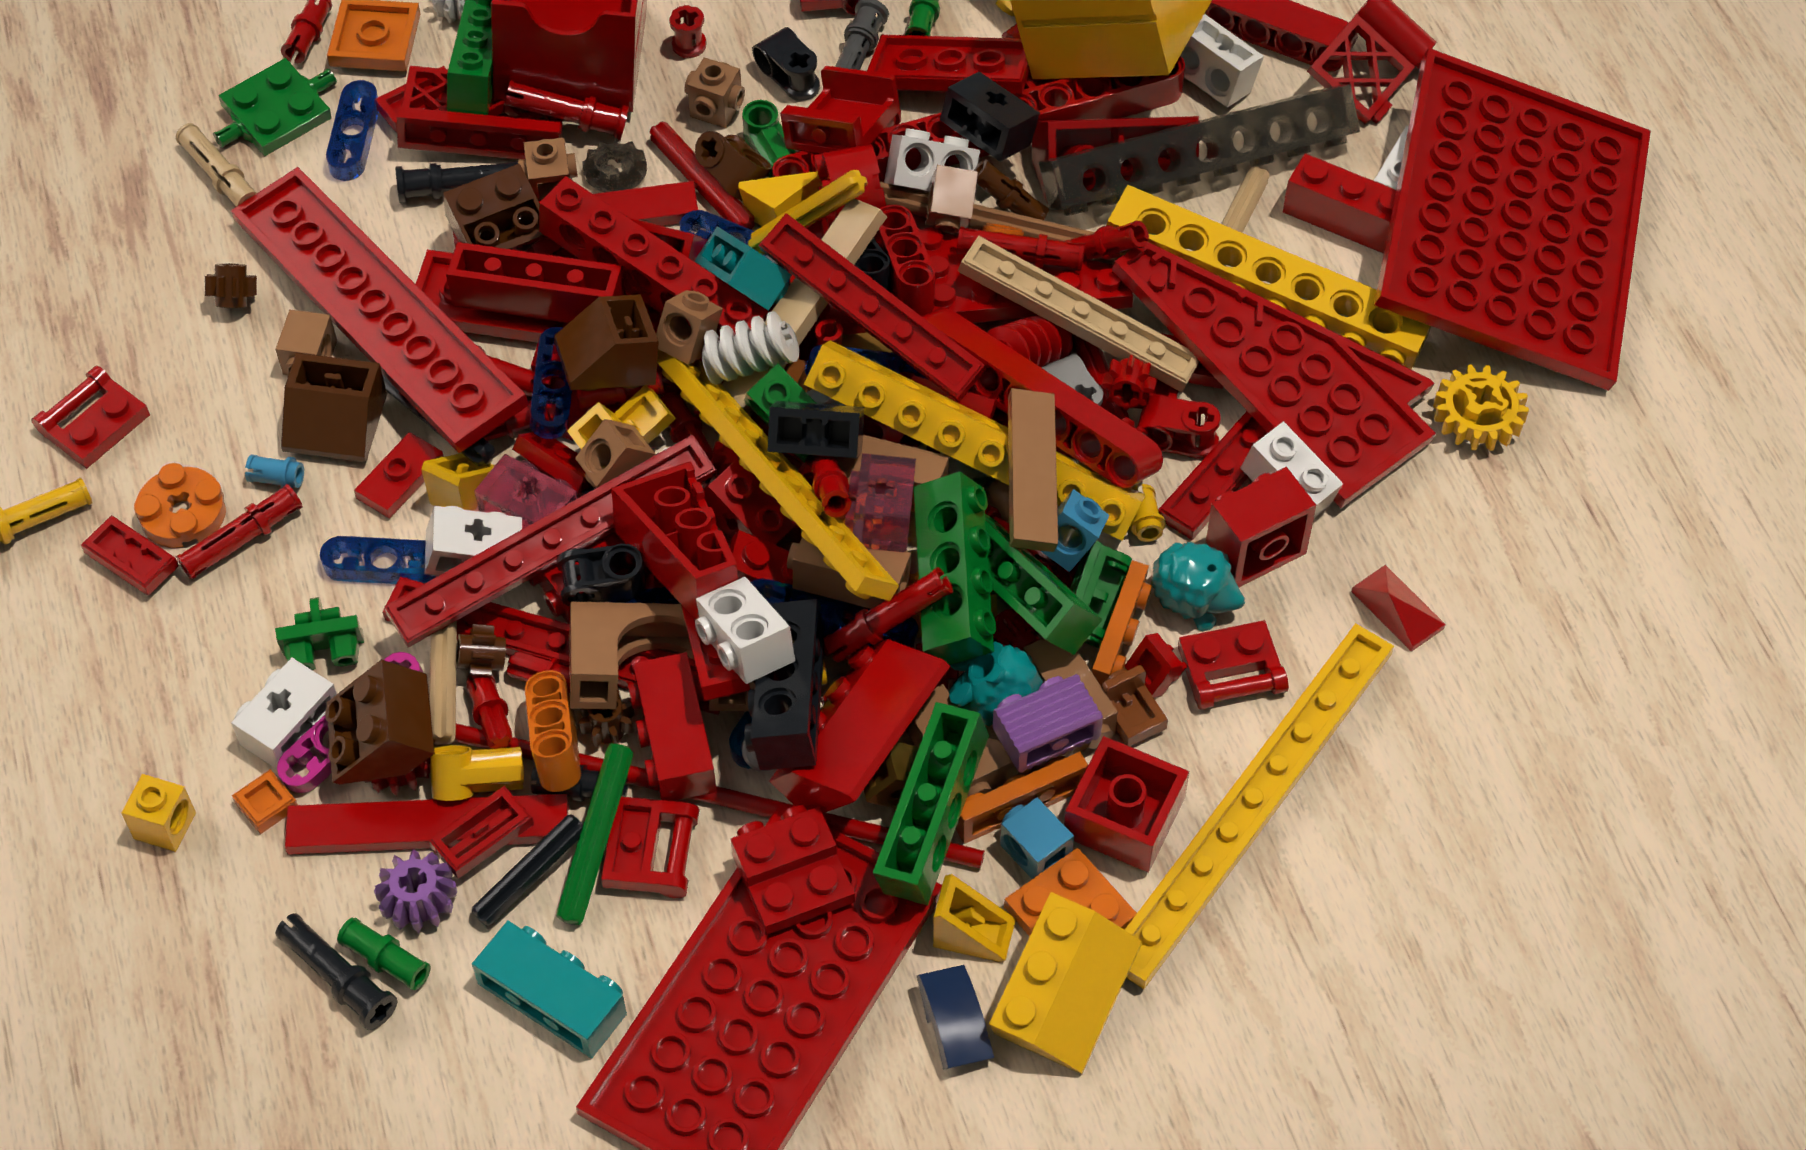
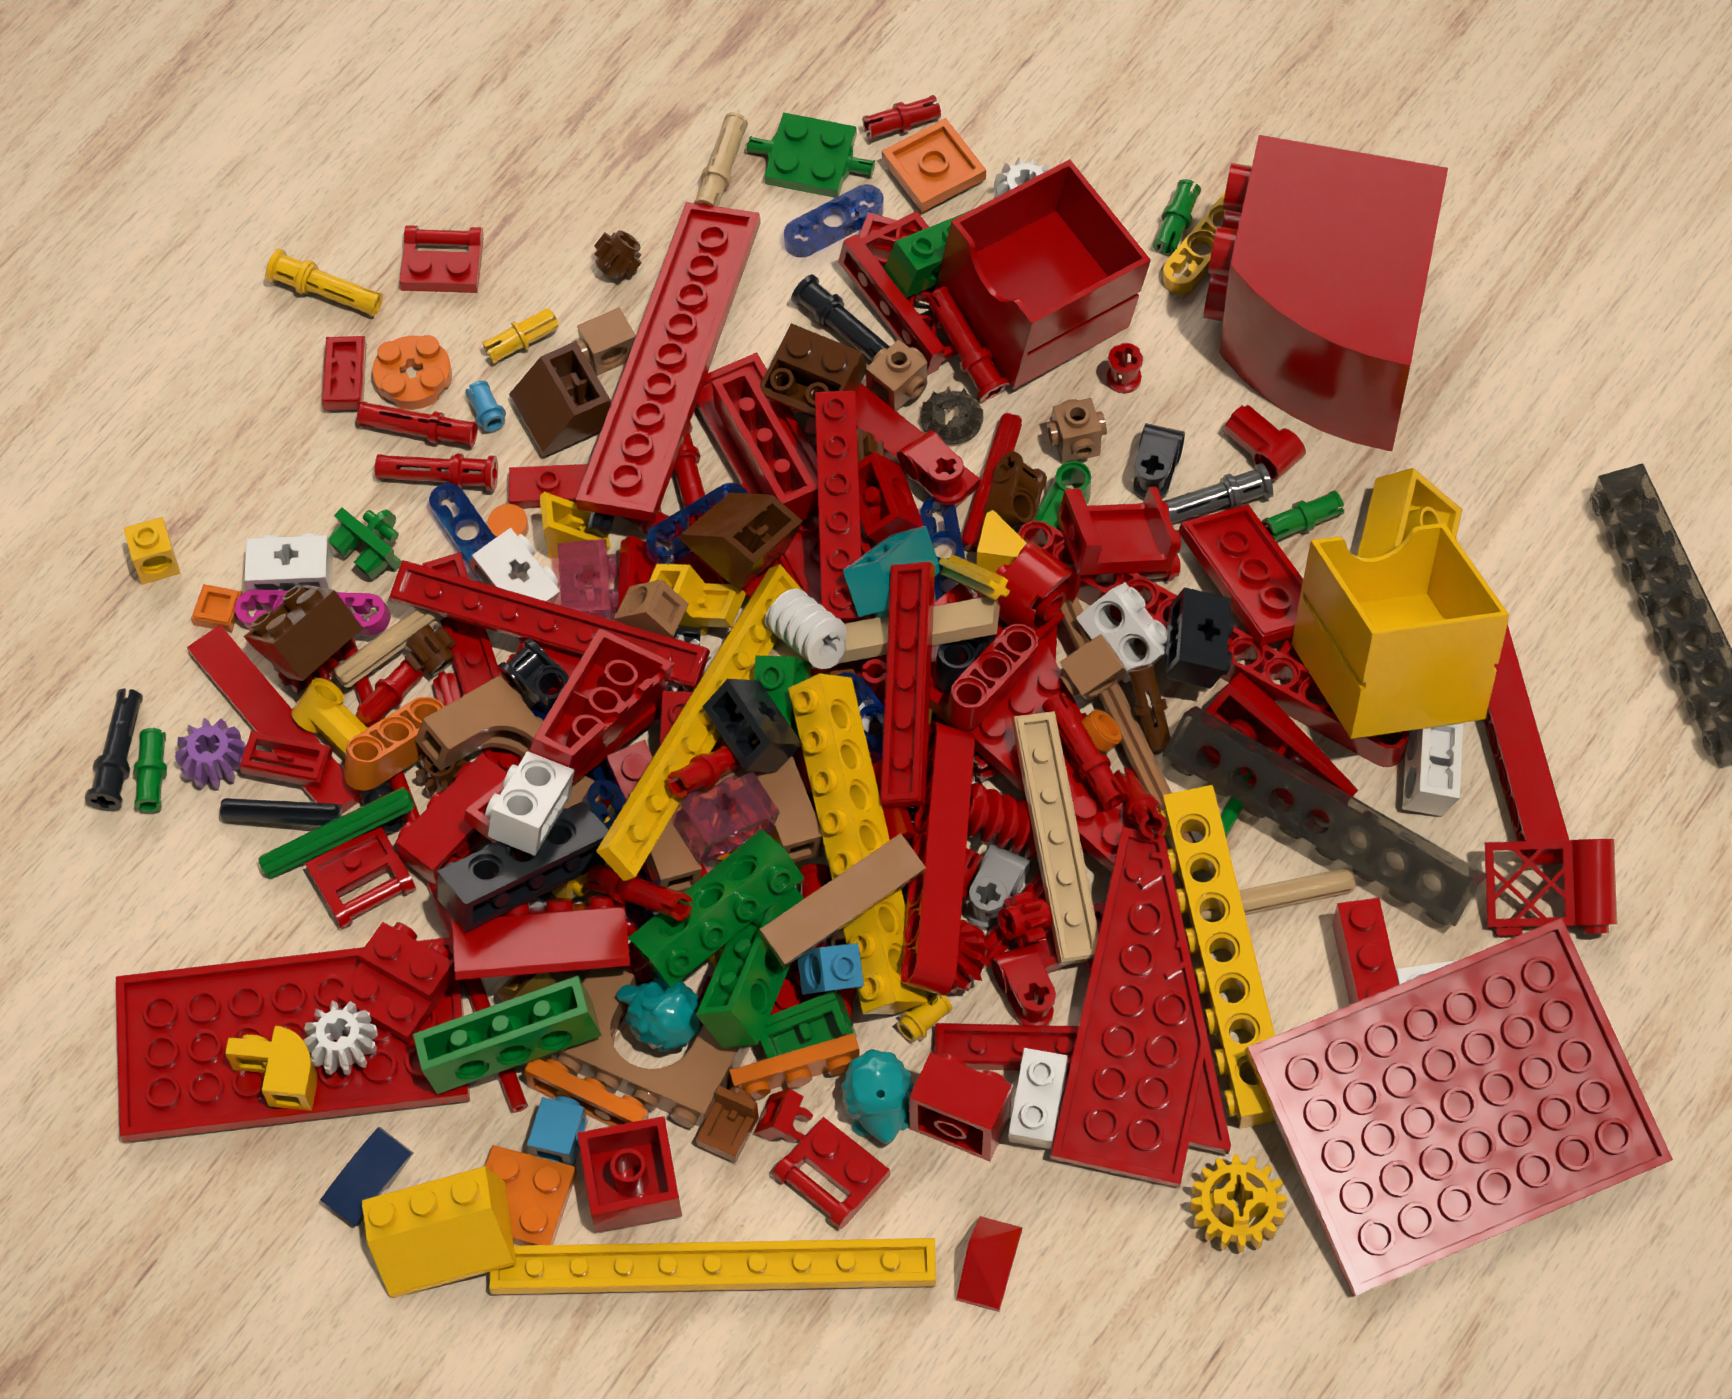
camera: 55 degrees right, 5 degrees up
(231, 404) = (520, 335): none -> yellow axle
(315, 525) = (458, 467): none -> red pin
(406, 523) = (508, 516): none -> orange tile
(550, 988) = (197, 894): teal brick -> none
(657, 194) = (934, 468): none -> red piece
(676, 335) = (797, 567): medium nougat brick -> none
(798, 1003) = (287, 1066): none -> yellow brick
(813, 962) = (333, 1027): none -> white gear
(970, 922) = (452, 1132): yellow slope -> none
(1047, 721) = (643, 1067): medium lavender brick -> none

